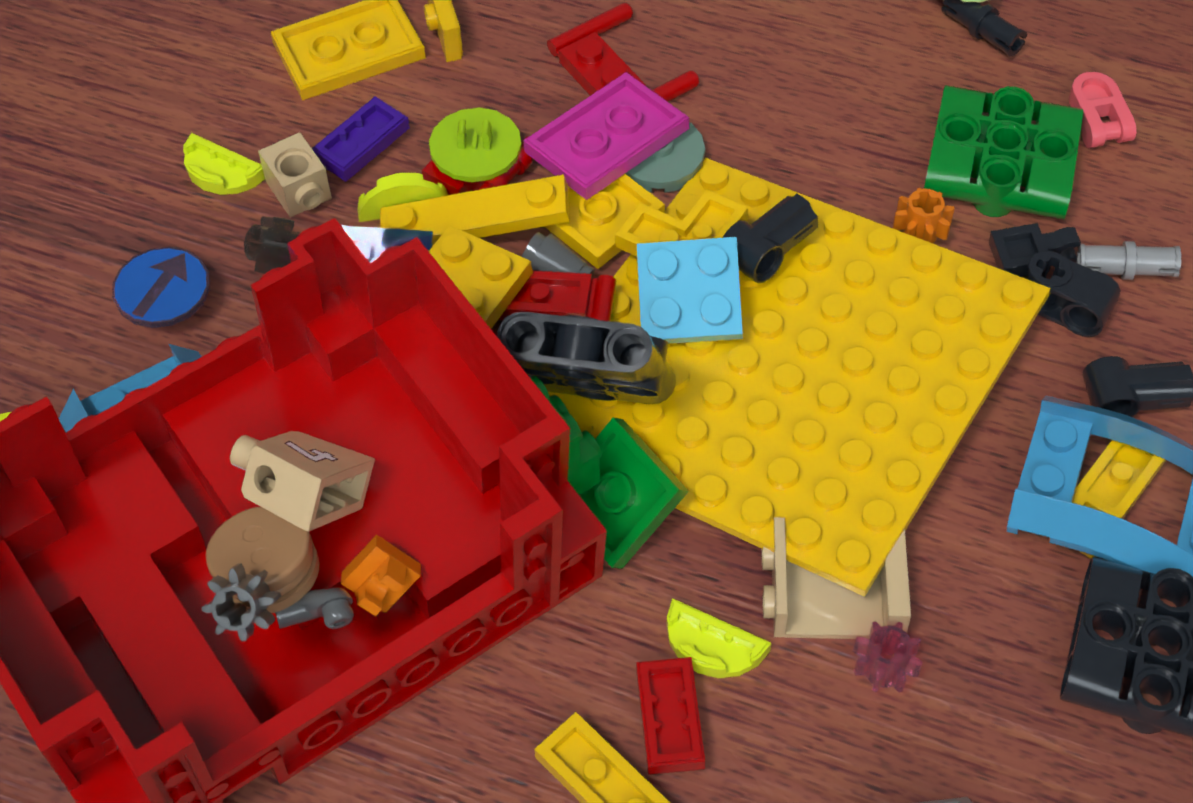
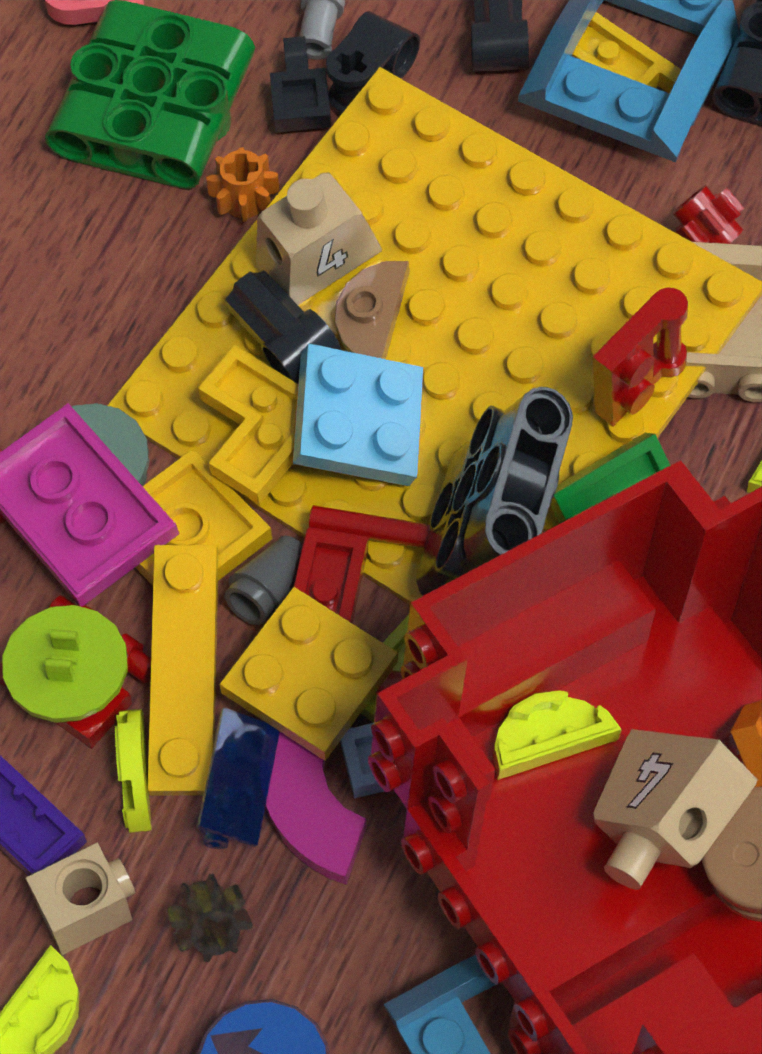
camera: 85 degrees left, 5 degrees up
(388, 414) = (550, 729): none -> neon yellow tile
(744, 464) = (631, 362): none -> red plate
(793, 297) = (370, 308): none -> medium nougat plate
(849, 240) = (312, 237): none -> tan torso
(939, 554) = (709, 217): none -> red gear

